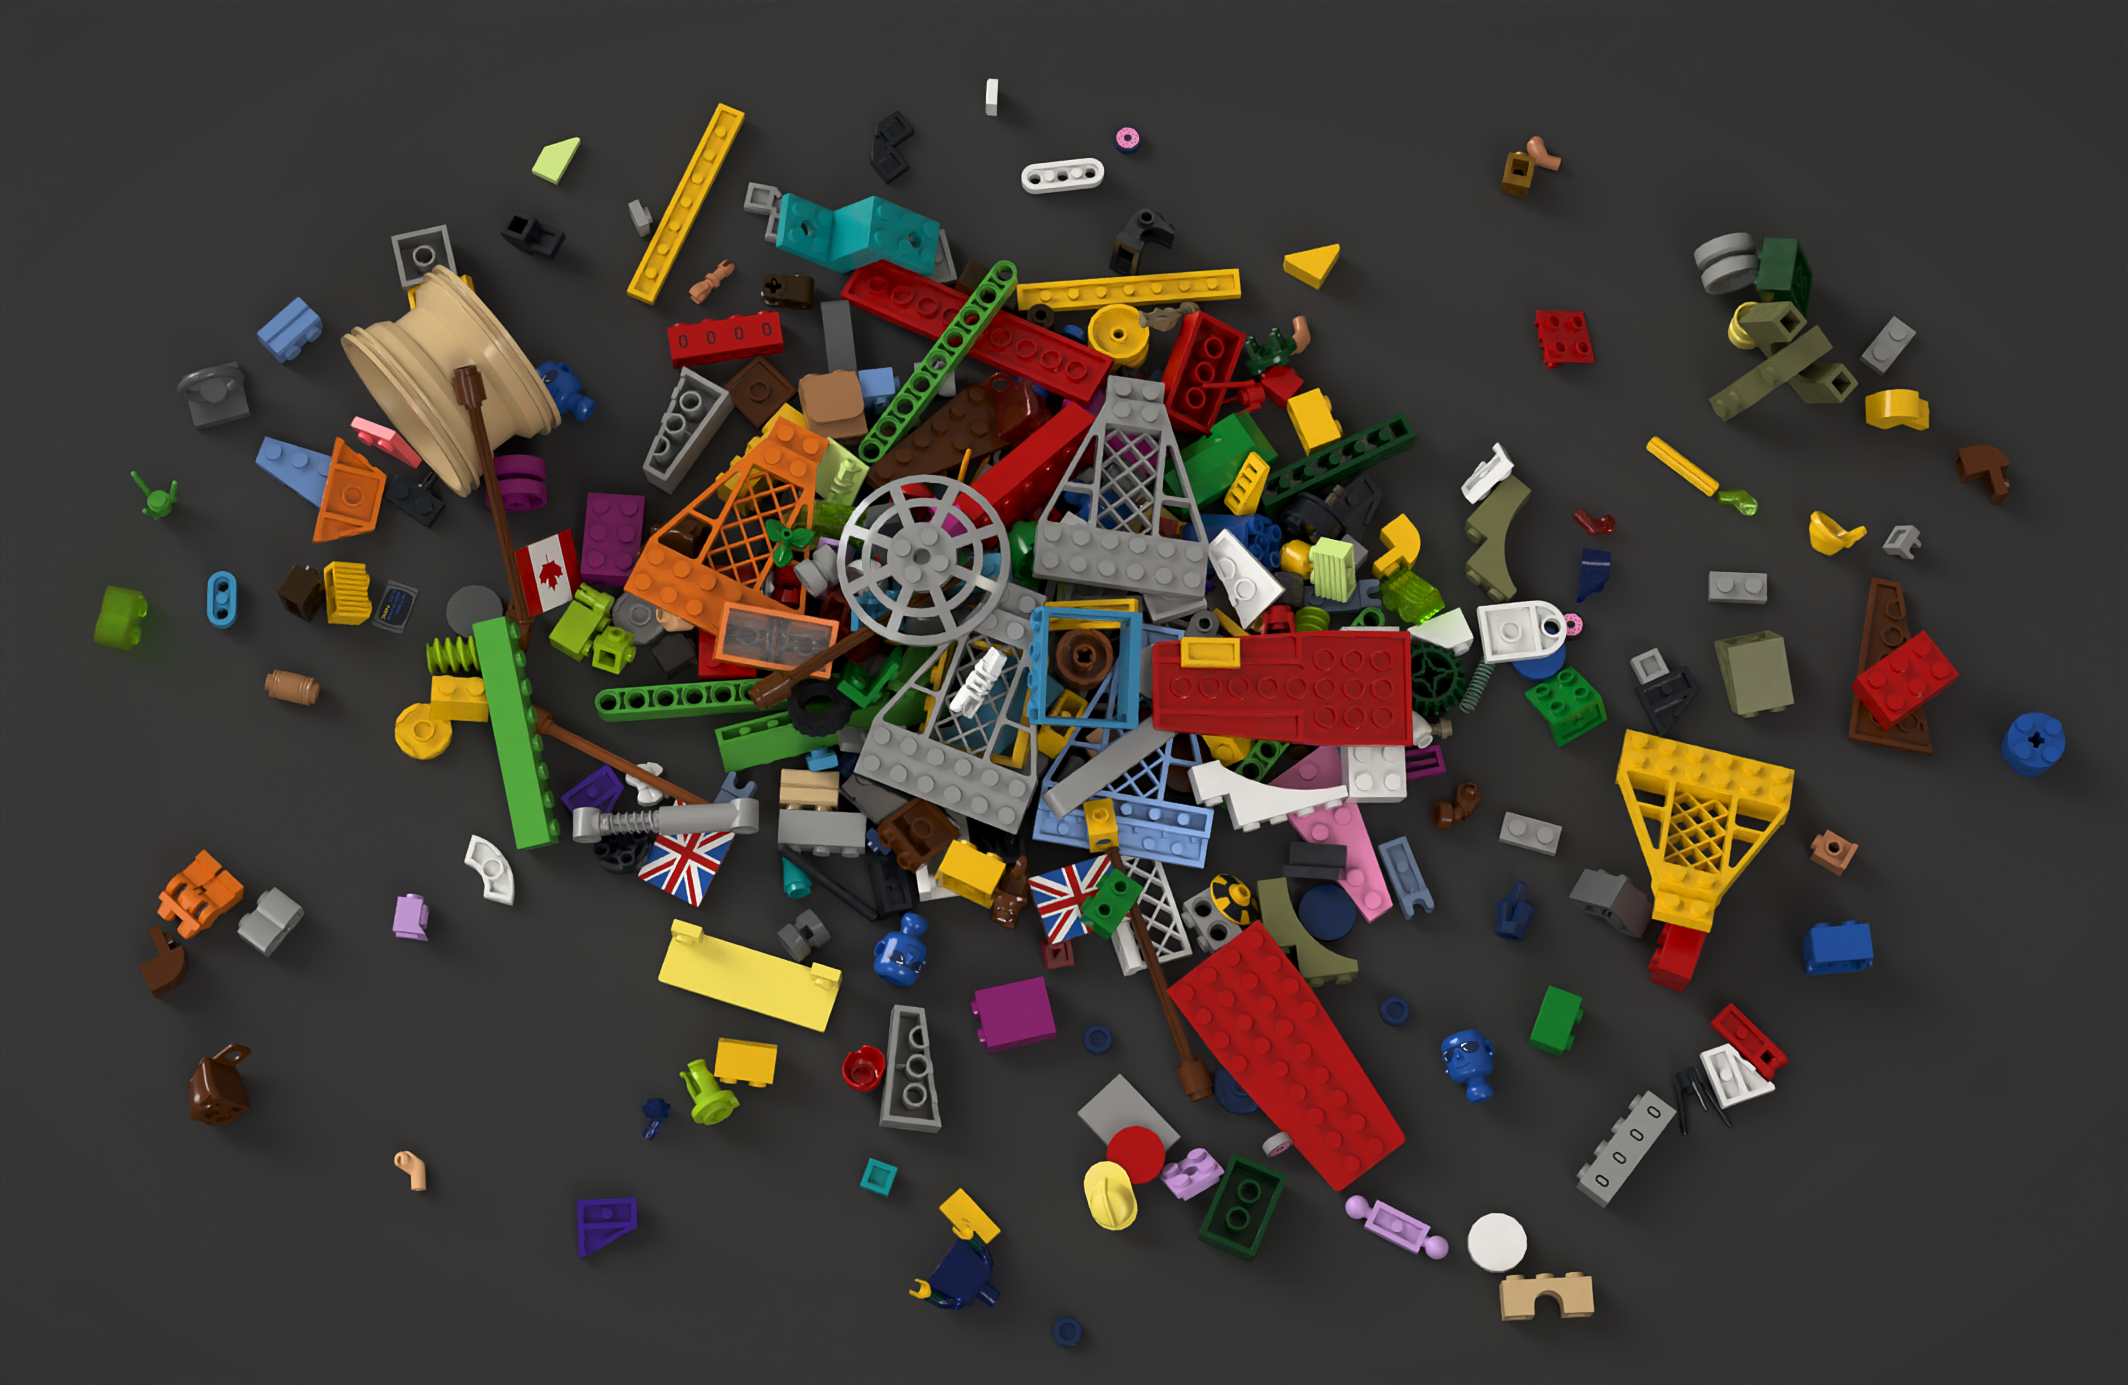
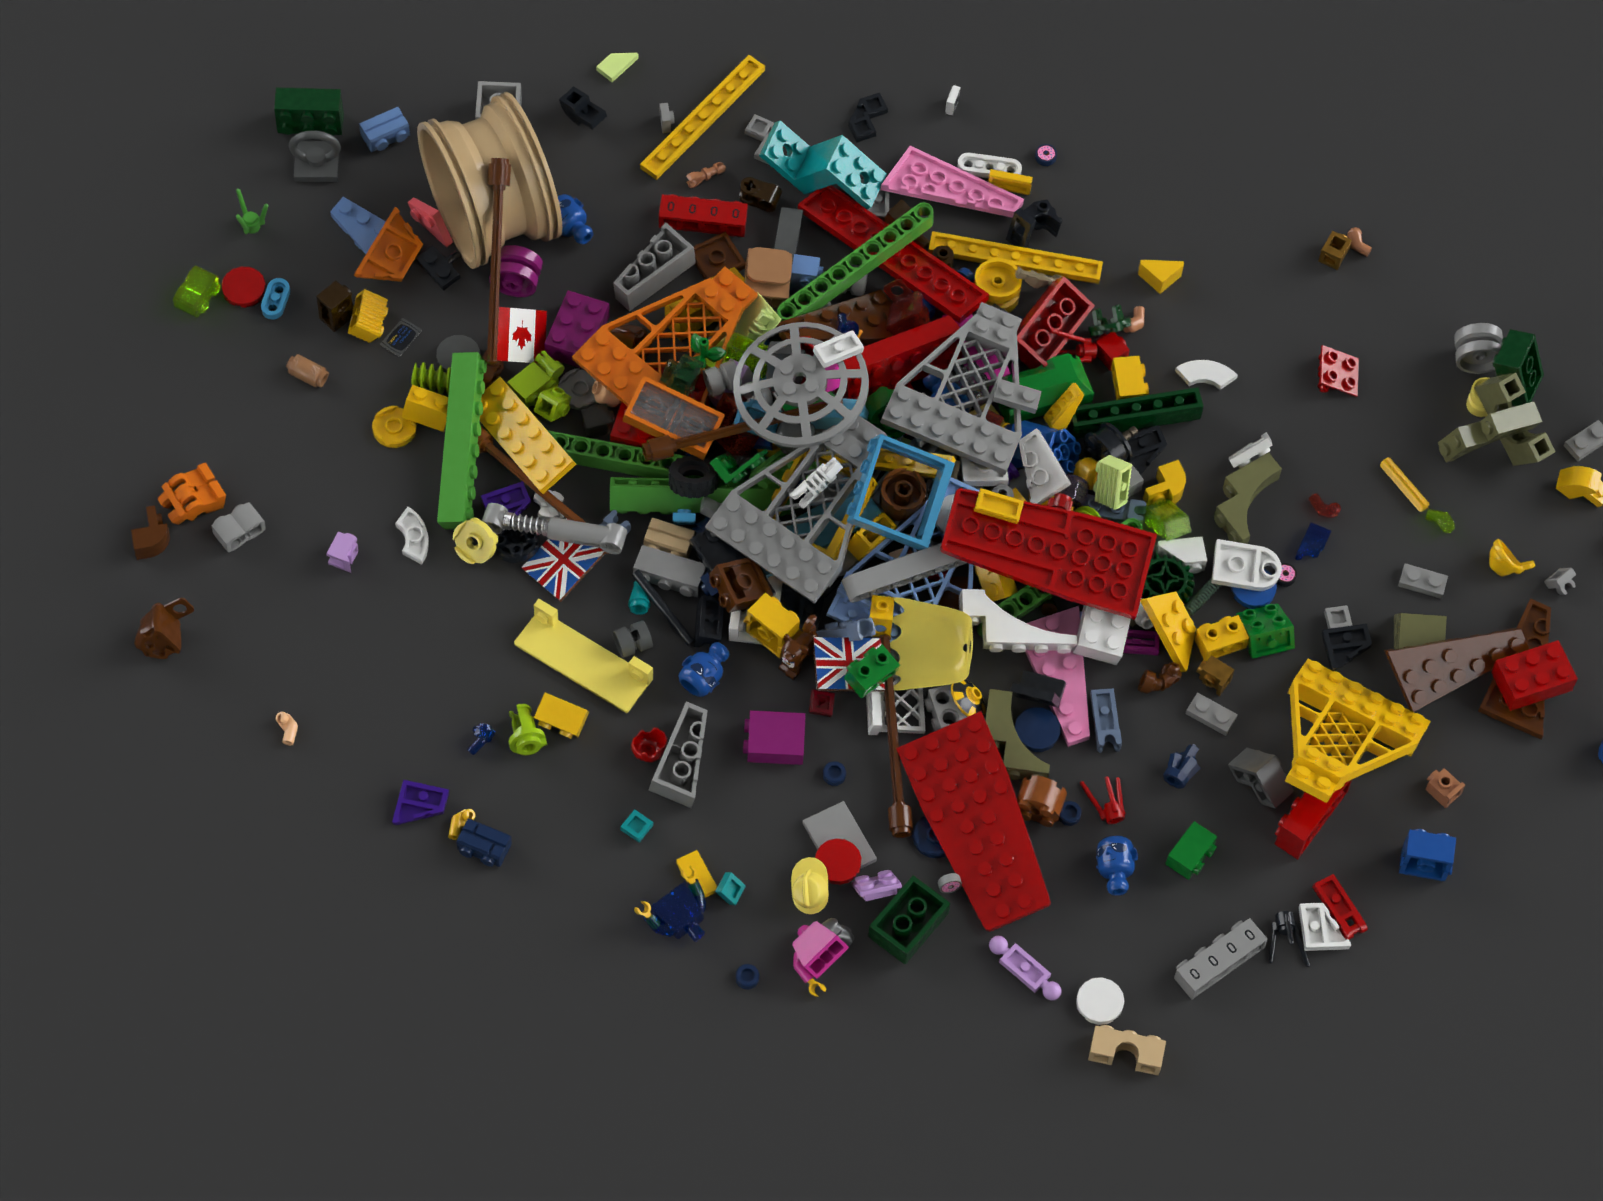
camera: 15 degrees right, 10 degrees down
(176, 593) = (243, 286): none -> red tile
(187, 334) = (308, 110): none -> dark green brick
(584, 855) = (482, 533): none -> light yellow plate
(591, 706) = (523, 436): none -> yellow plate
(661, 1231) = (458, 822): none -> yellow arm
(699, 1254) = (483, 843): none -> dark blue brick
(769, 581) = (683, 374): none -> clear green brick
(952, 455) = (846, 326): none -> clear blue plate
(960, 507) = (838, 349): none -> white plate
(1000, 213) = (935, 180): none -> bright pink wing
(1015, 1227) = (730, 888): none -> teal plate
(1065, 855) = (853, 629): none -> sand blue plate
(1094, 190) = (1010, 181): none -> yellow tile
(1146, 1277) = (818, 949): none -> dark pink torso
(1173, 848) = (931, 645): none -> light yellow piece
(1189, 493) = (1016, 396): none -> light grey plate
(1358, 1009) = (1041, 800): none -> dark orange brick
(1403, 381) = (1206, 372): none -> white tile
(1447, 994) = (1114, 810): none -> red plant
(1455, 737) = (1172, 625): none -> yellow wing
(1516, 732) = (1221, 637): none -> yellow brick
(1521, 782) = (1215, 674): none -> pearl gold brick
(1797, 696) = (1445, 665): none -> reddish brown wing

